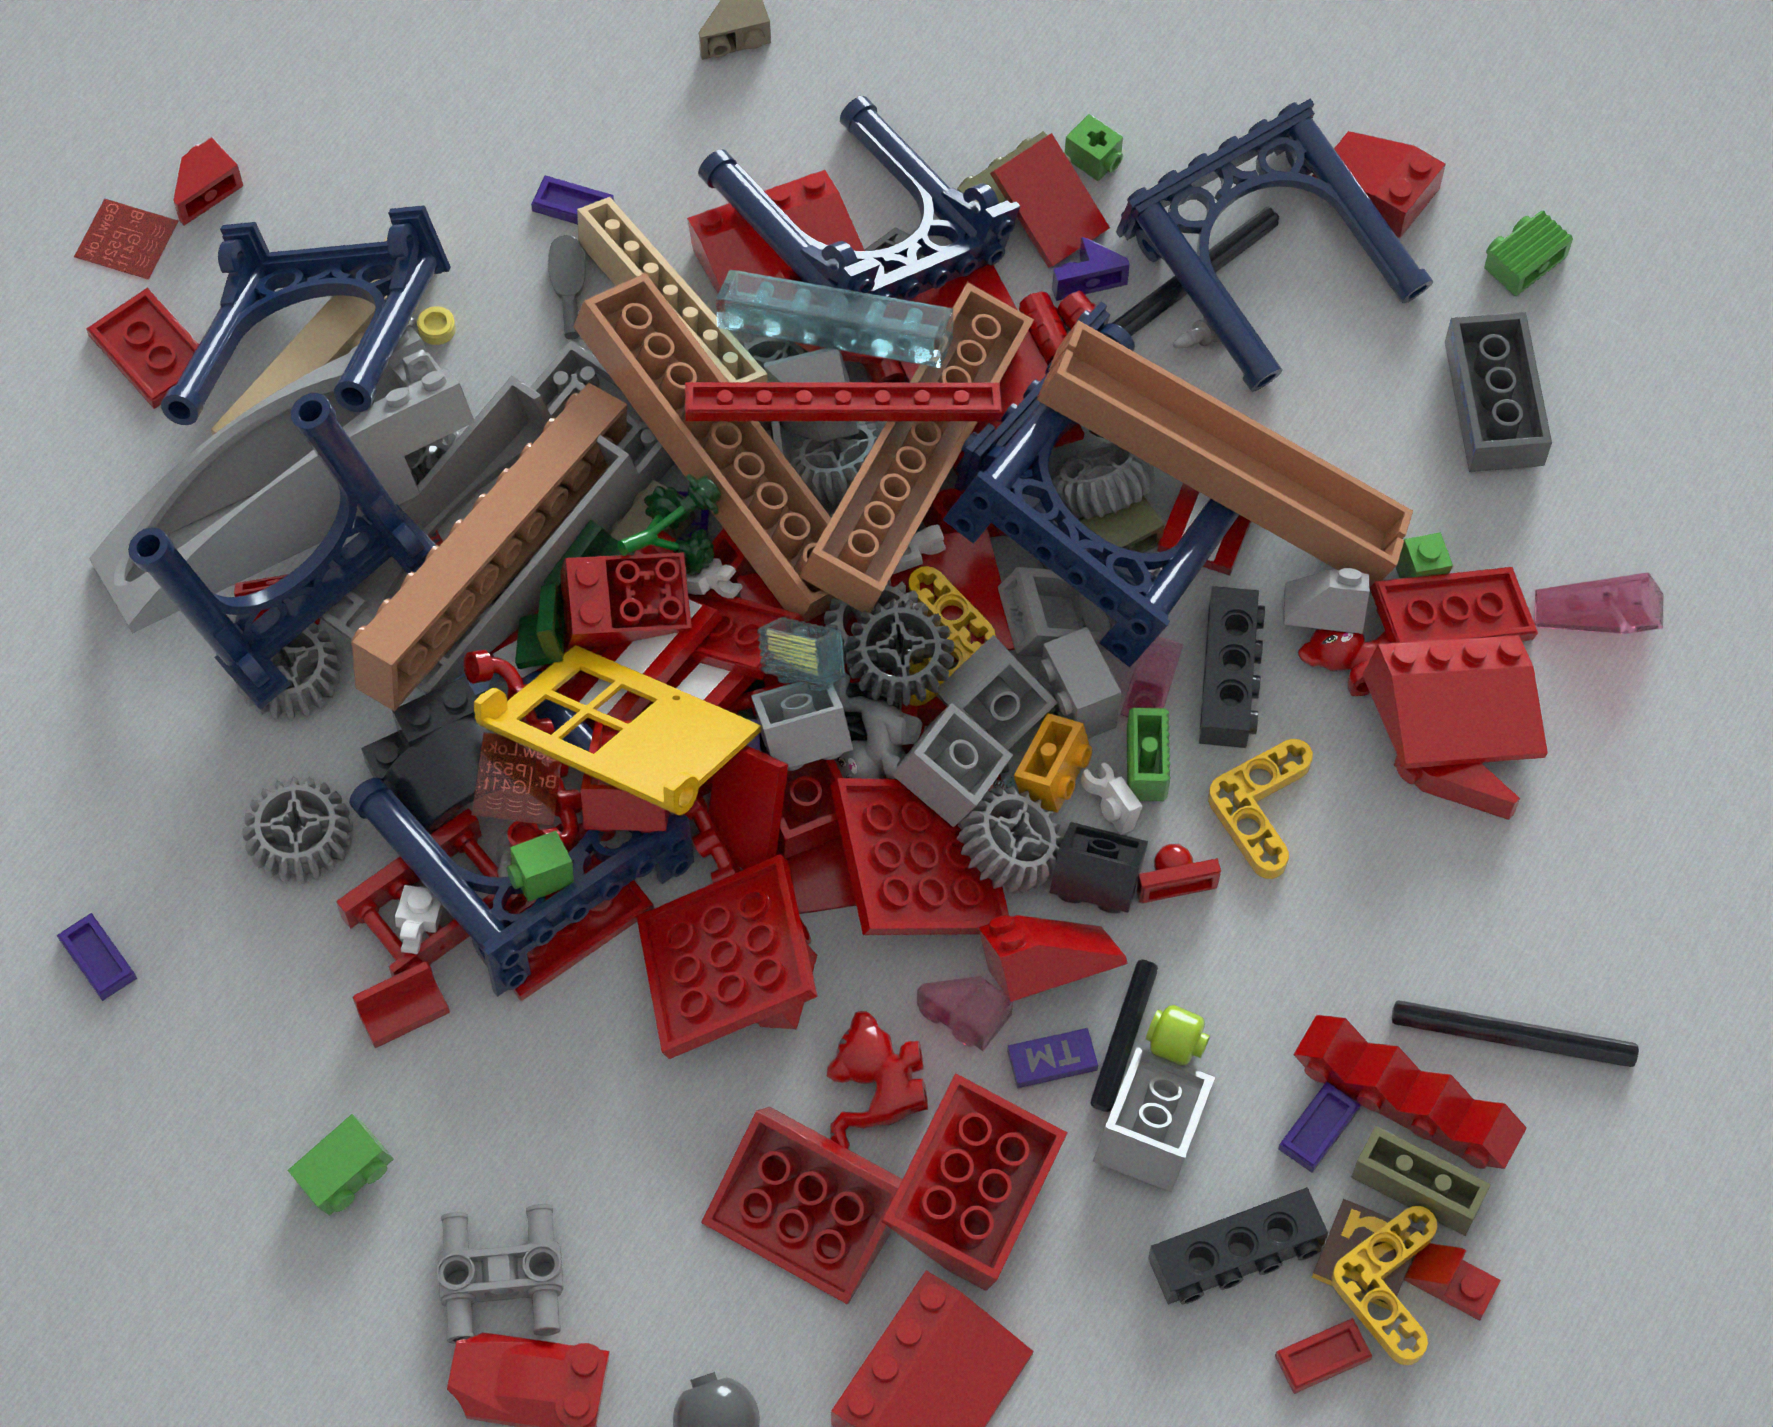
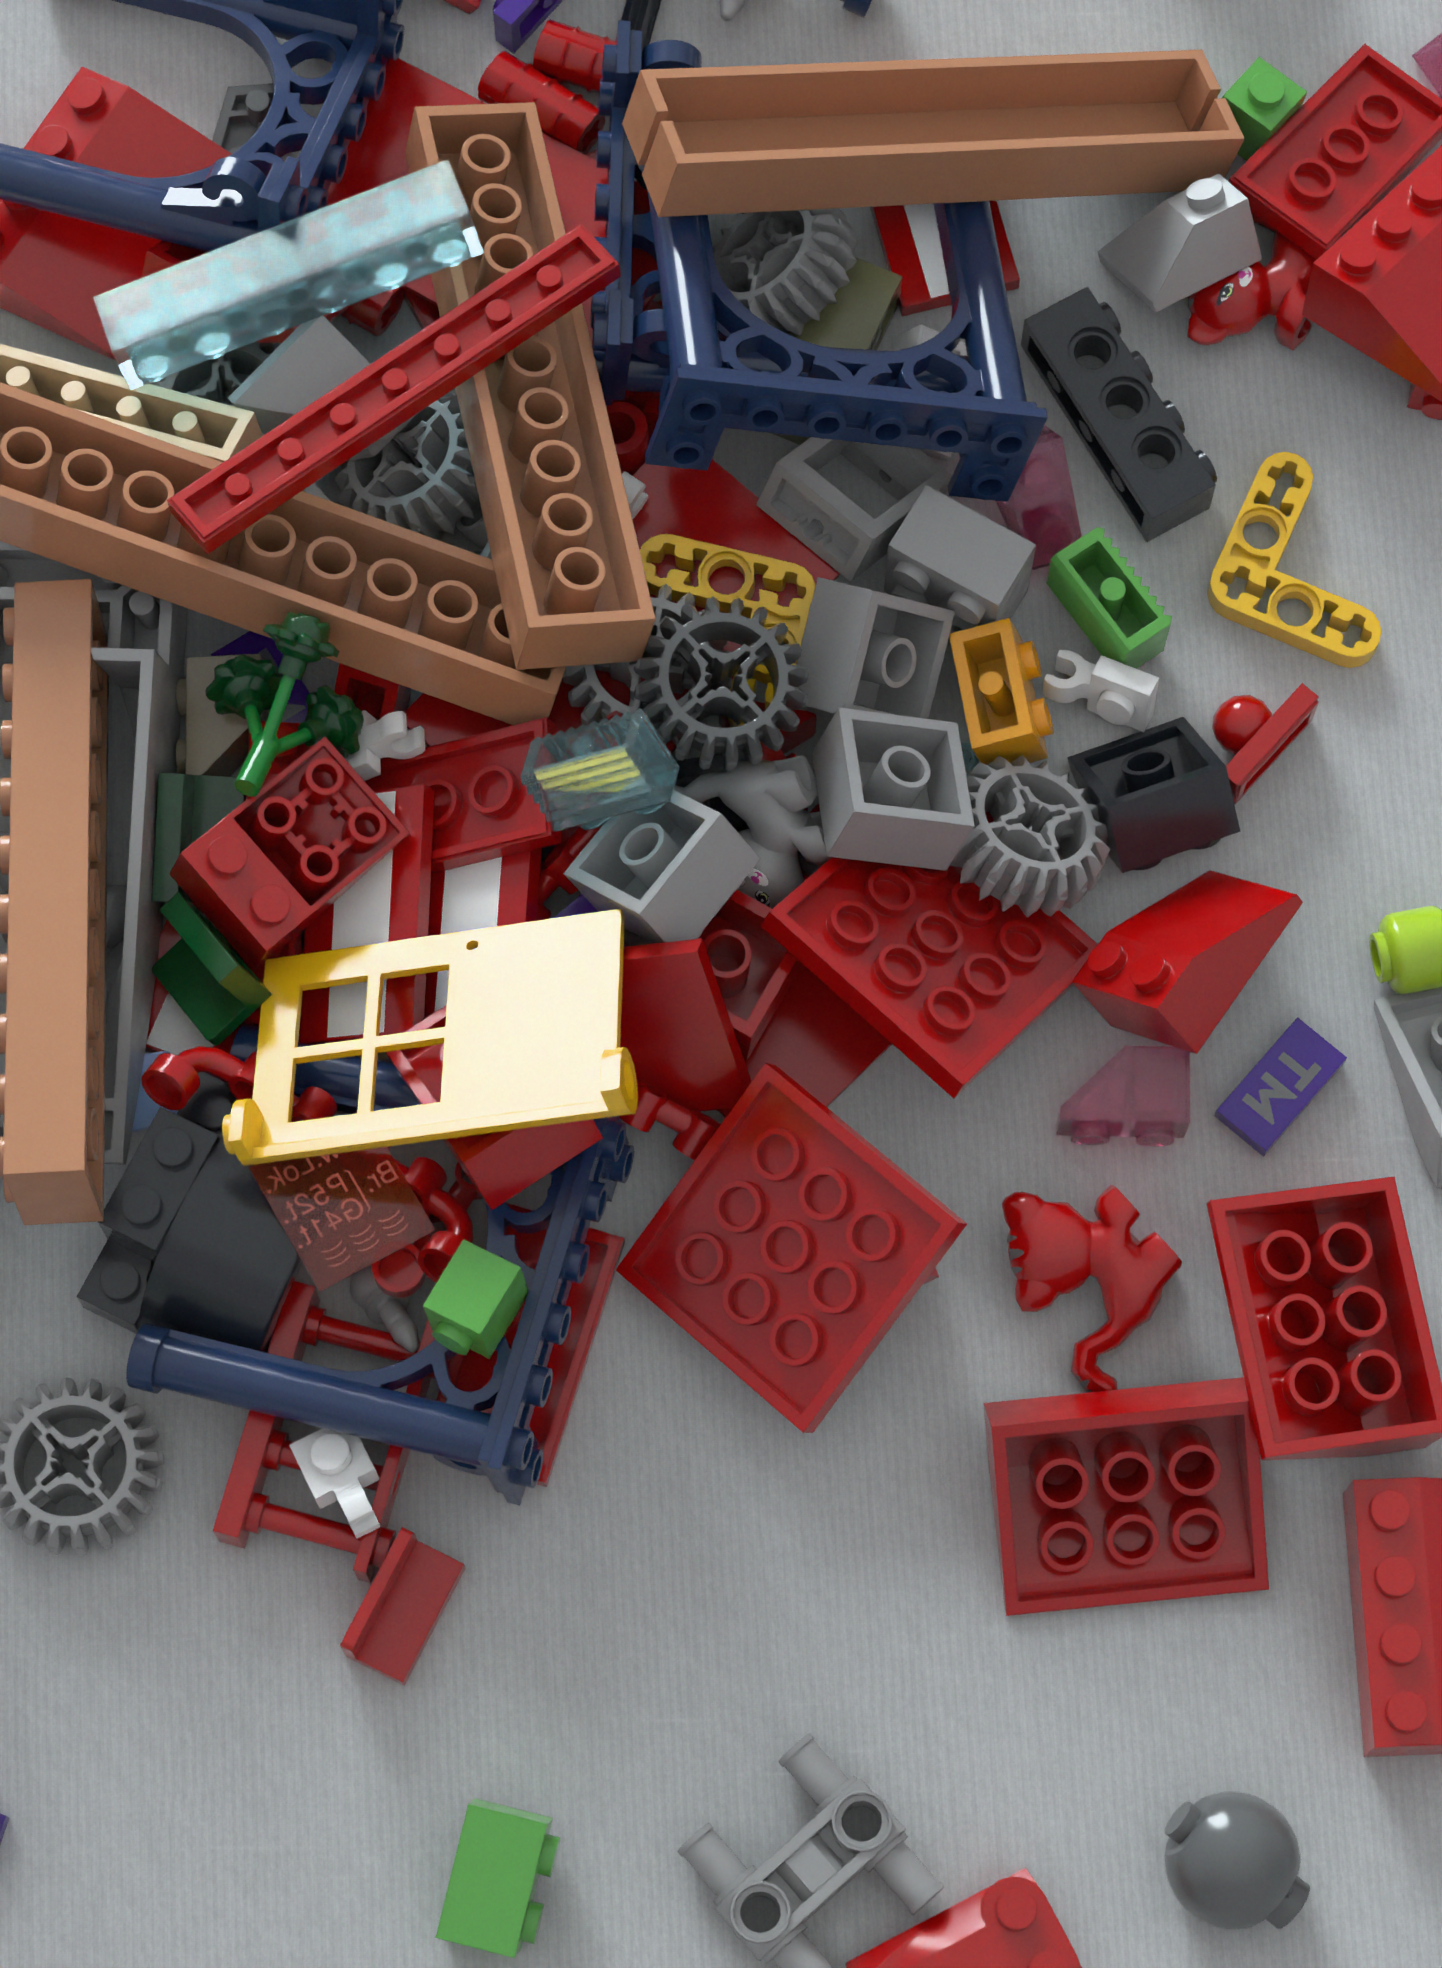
camera: 35 degrees left, 10 degrees up
(1124, 1035) = (1347, 996): black axle -> none

